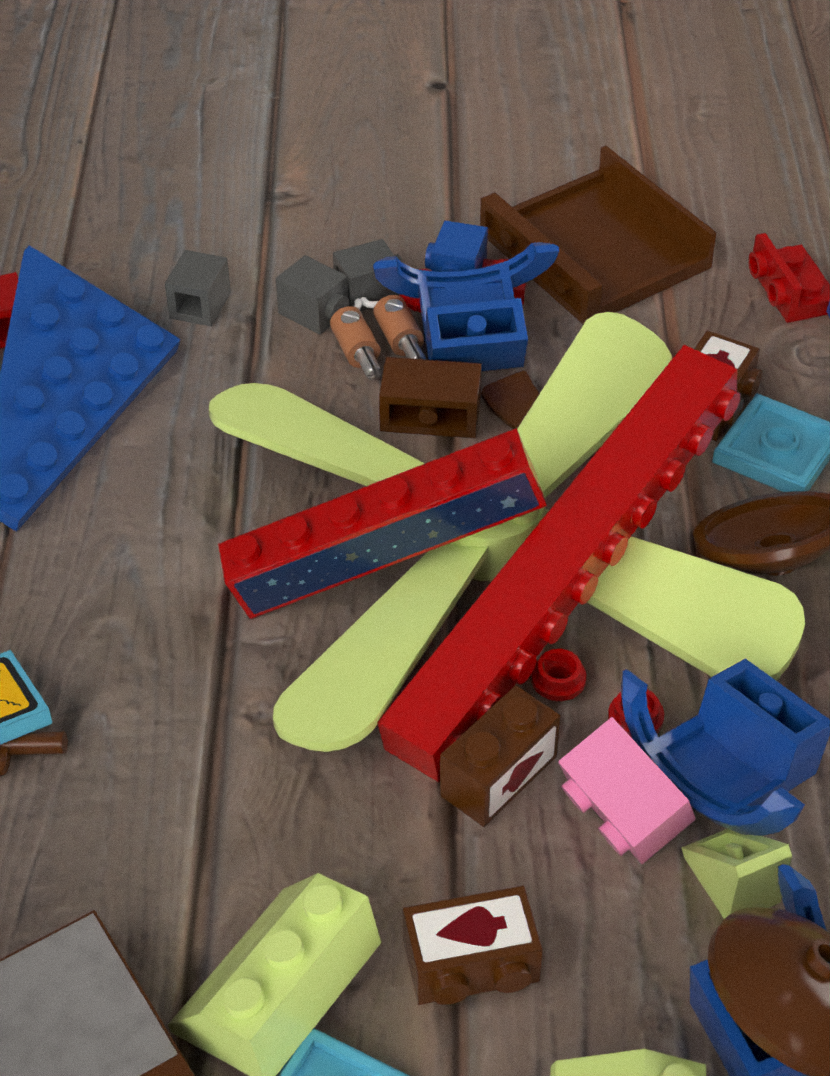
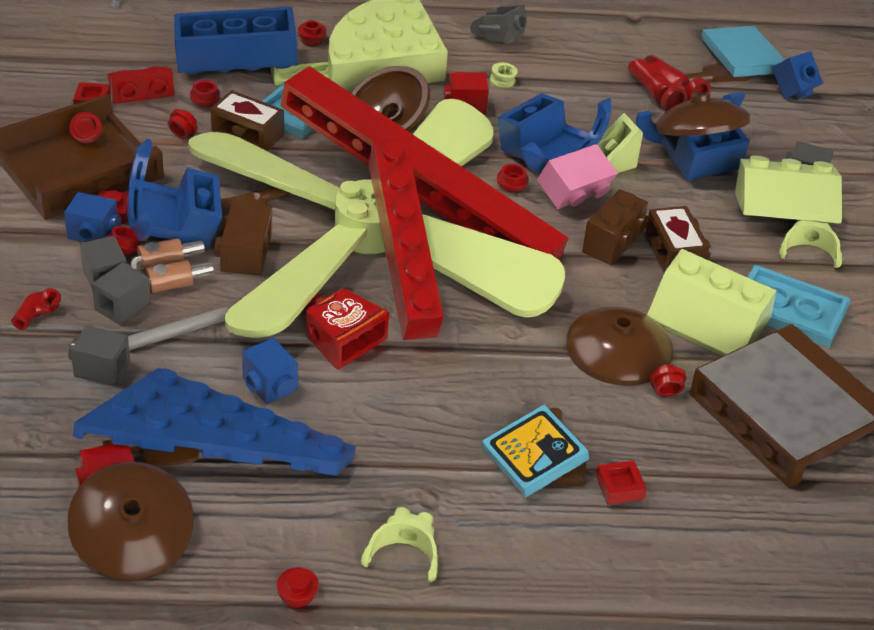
camera: 95 degrees left, 5 degrees down
(109, 892) = (668, 380): none -> red plate
(160, 432) = (269, 370): none -> blue brick
(221, 871) = (618, 345): none -> reddish brown dish
(244, 492) = (345, 326): none -> red torso
(259, 351) = (177, 328): none -> light grey bar
(298, 234) = (34, 306): none -> red arm
(495, 841) = (615, 227): none -> reddish brown brick
(499, 755) = (561, 215): reddish brown brick -> none
(651, 230) = (85, 127): none -> red plate
(692, 322) = (182, 123): none -> red plate
(736, 235) = (88, 91): none -> red plate
(783, 343) = (205, 93): none -> red plate

